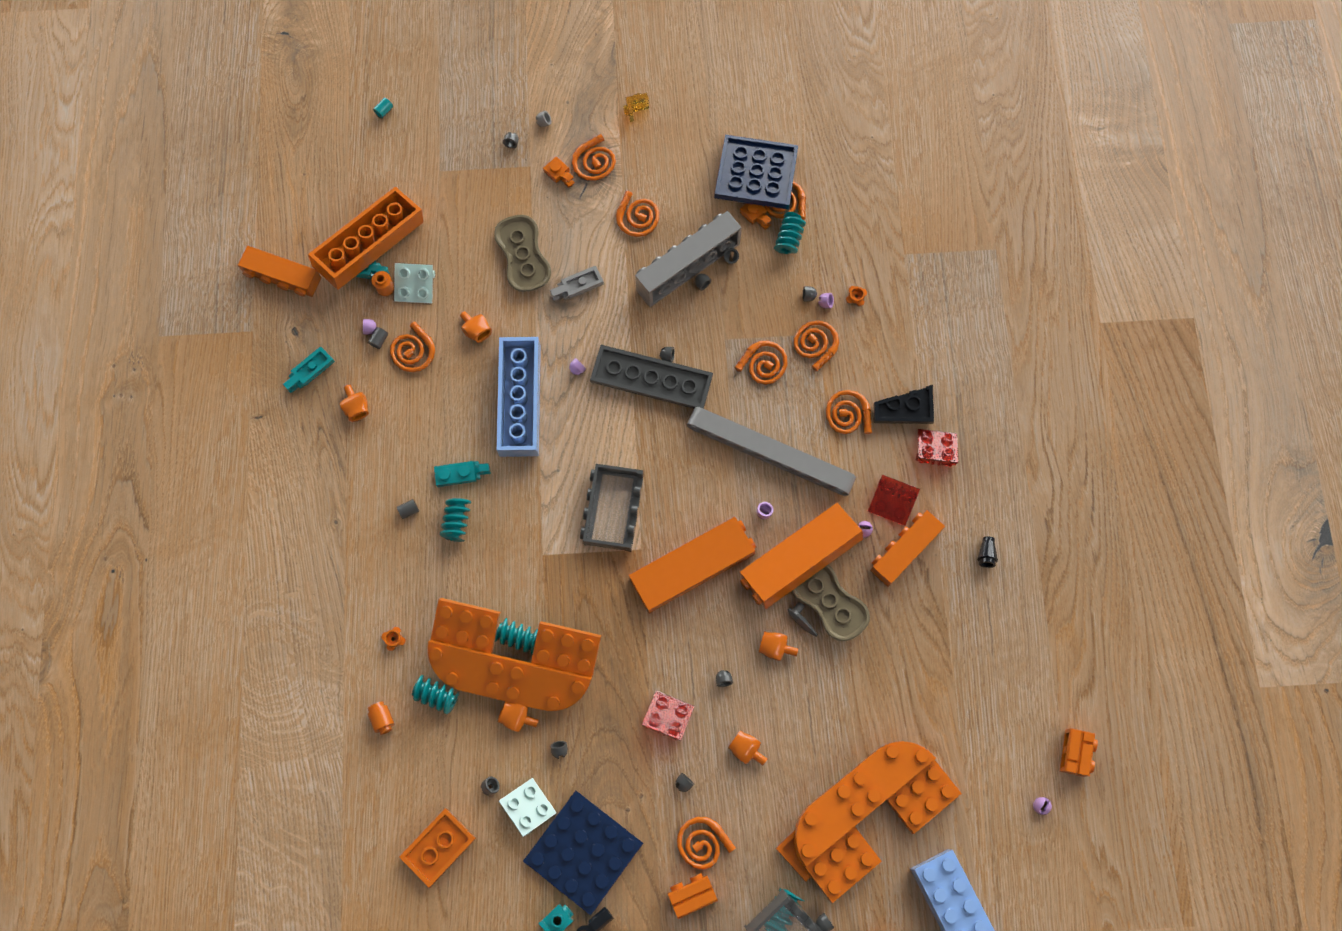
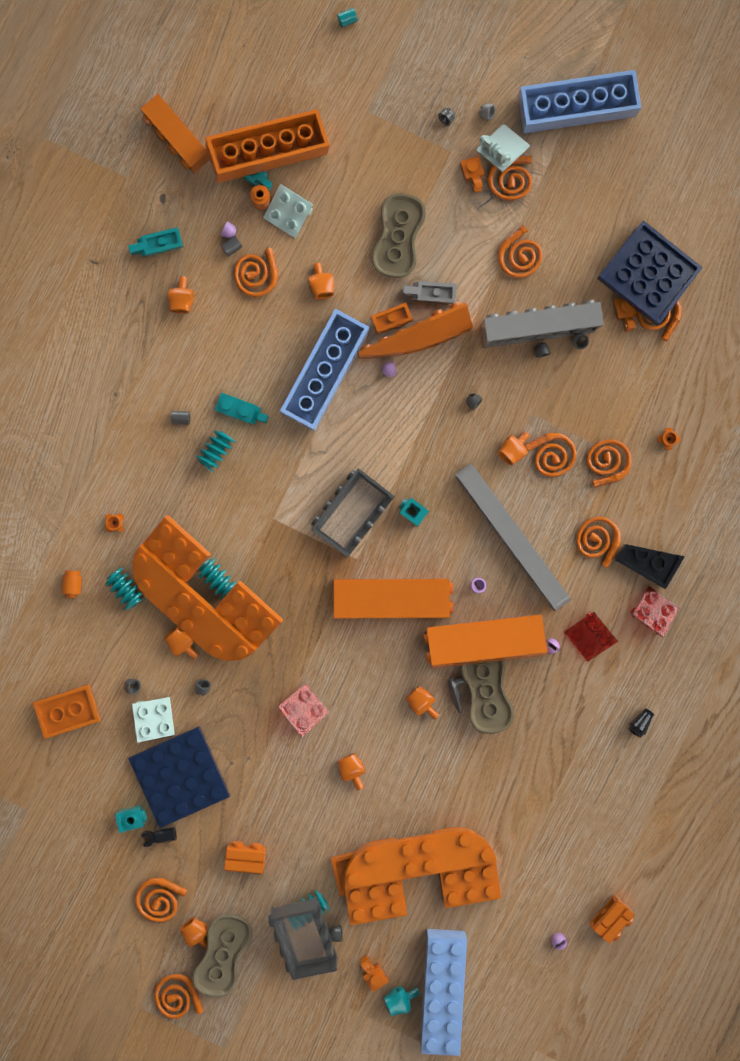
camera: 30 degrees right, 15 degrees up
(554, 323) = (391, 318): none -> orange plate
(572, 139) = (502, 147): none -> light aqua hinge
(591, 320) = (422, 335): none -> orange wedge
(616, 72) = (579, 101): none -> light blue brick
(635, 103) = (579, 142): clear yellow bracket -> none
(651, 377) = (448, 415): dark grey plate -> none
(669, 470) = (420, 512): none -> teal brick
(684, 783) = (287, 768): dark grey hinge -> none
(699, 845) = (272, 821): orange piece -> none
(724, 678) = (365, 704): dark grey hinge -> none
(726, 375) = (513, 448): none -> orange piece
(790, 233) = (644, 348): teal piece -> none
(809, 293) = (628, 414): dark grey hinge -> none
(827, 300) = (640, 428): lavender hinge -> none
(907, 548) = (577, 683): orange brick -> none

